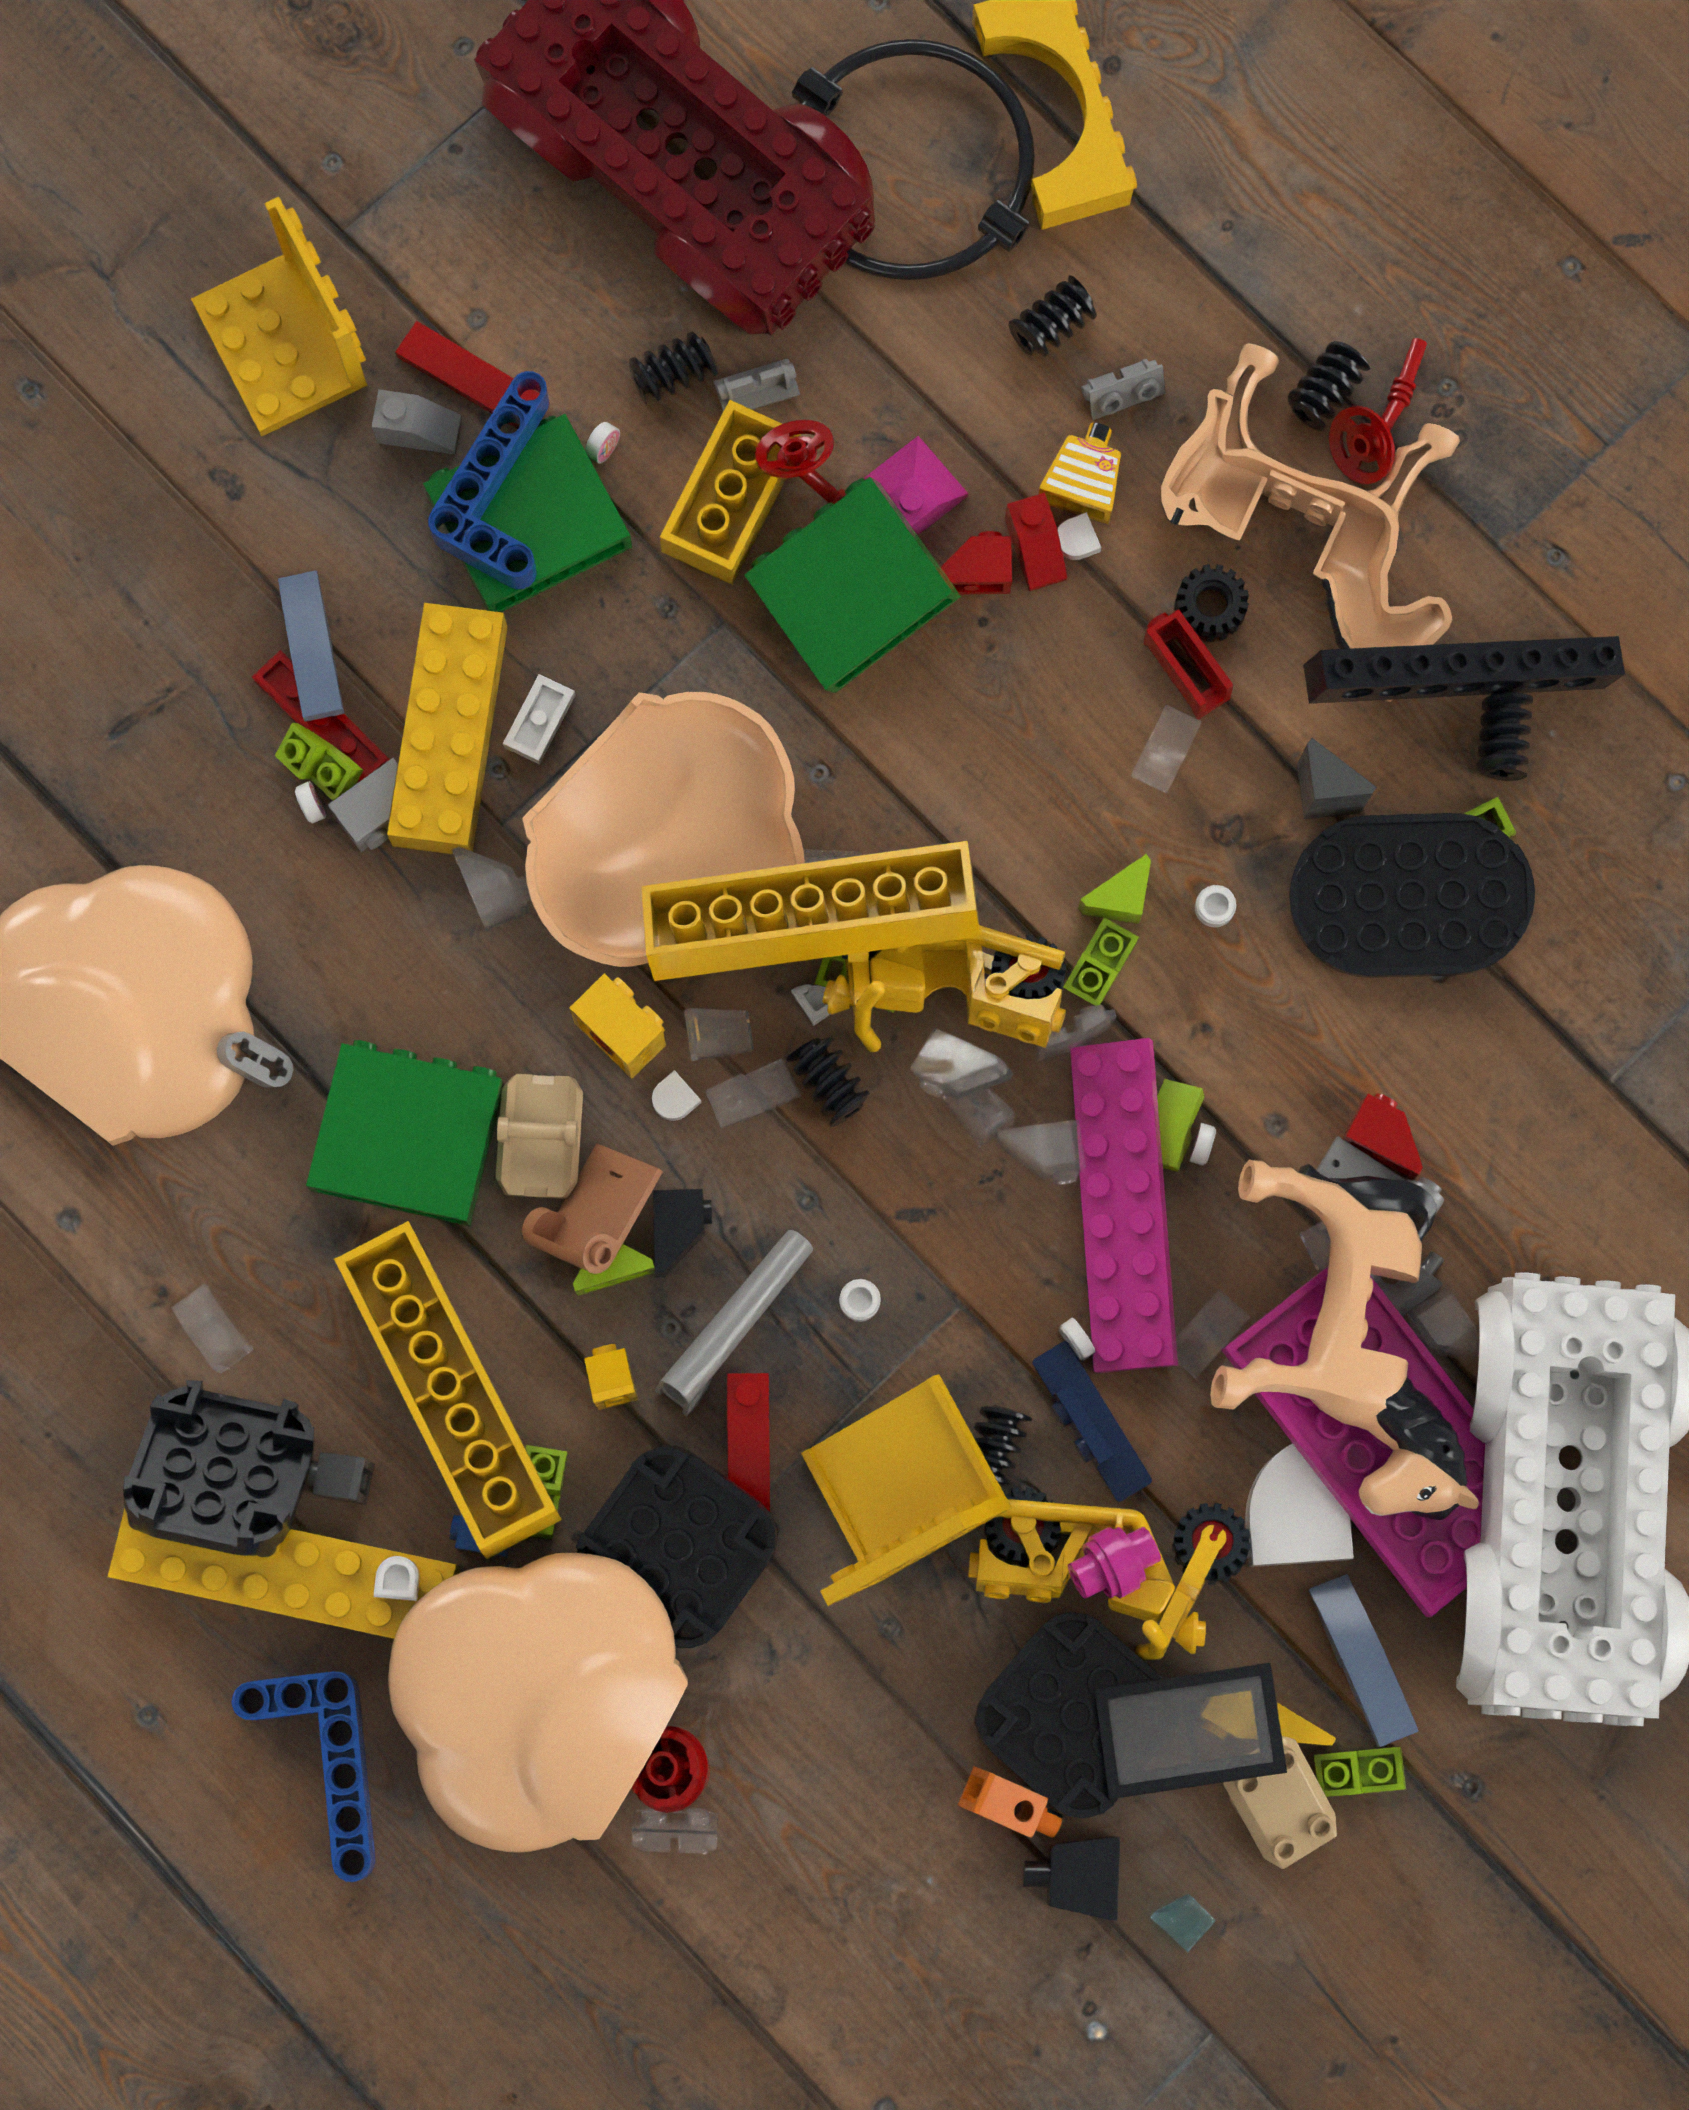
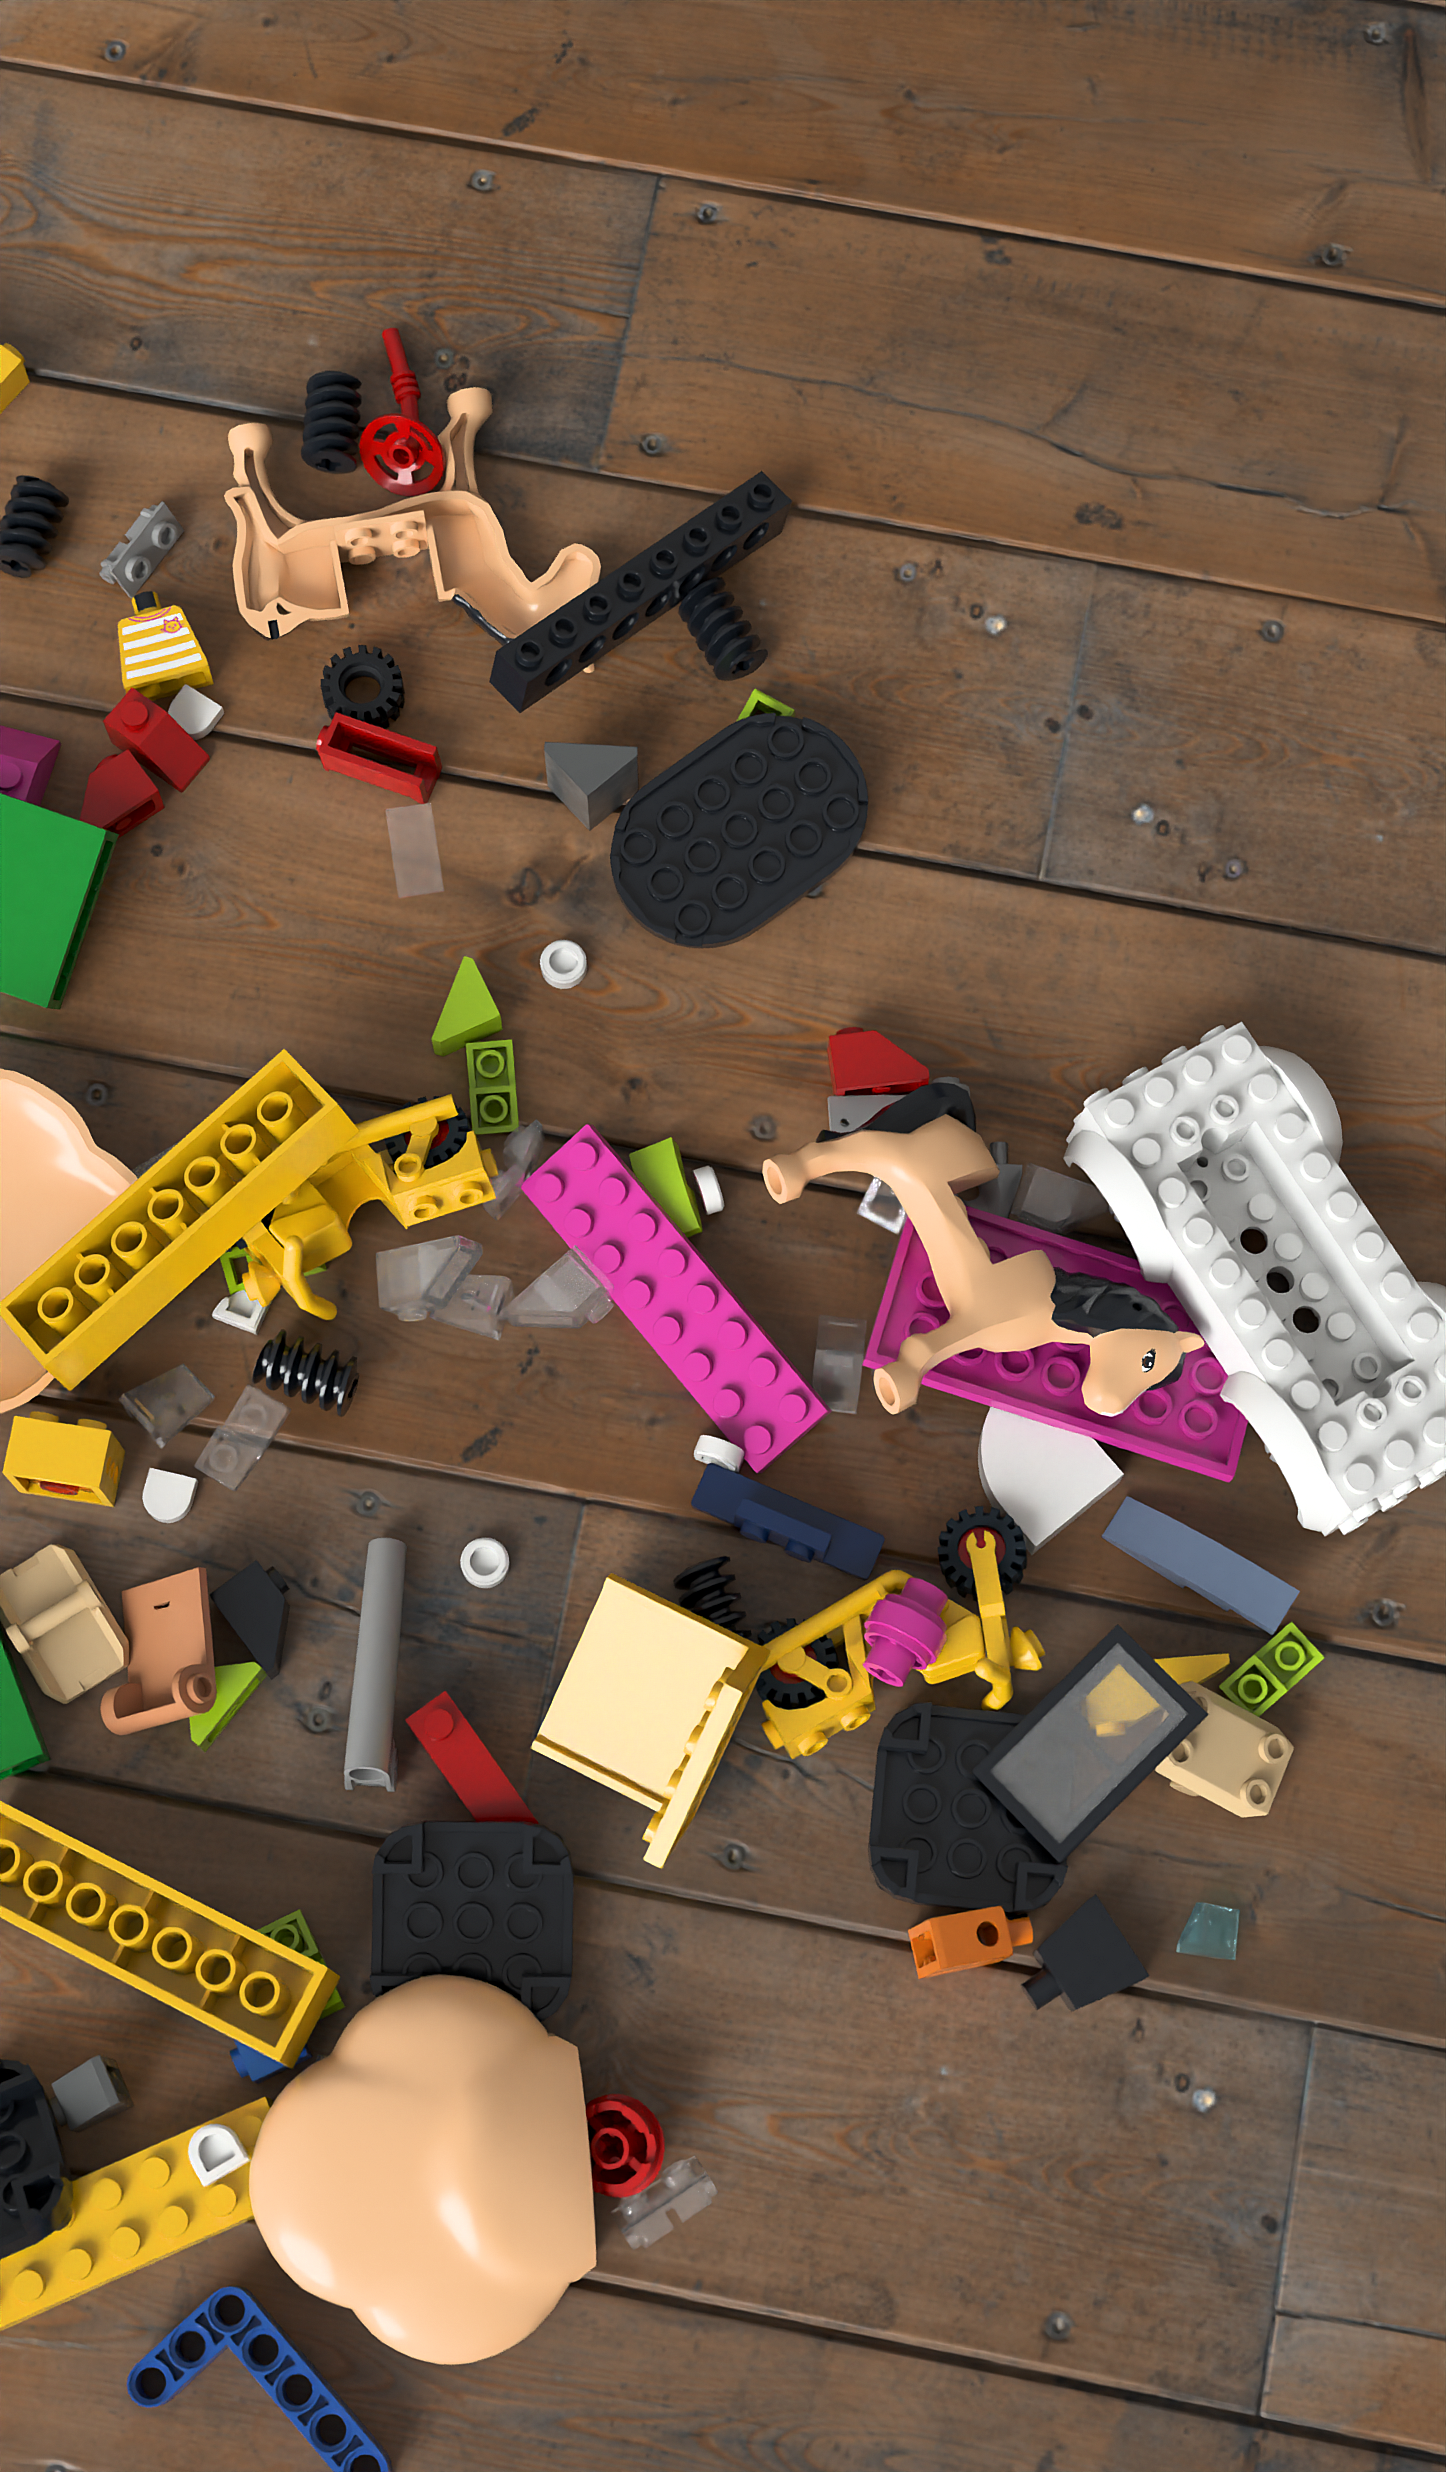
camera: 35 degrees left, 5 degrees down
(610, 1377) = (293, 1805): yellow slope -> none

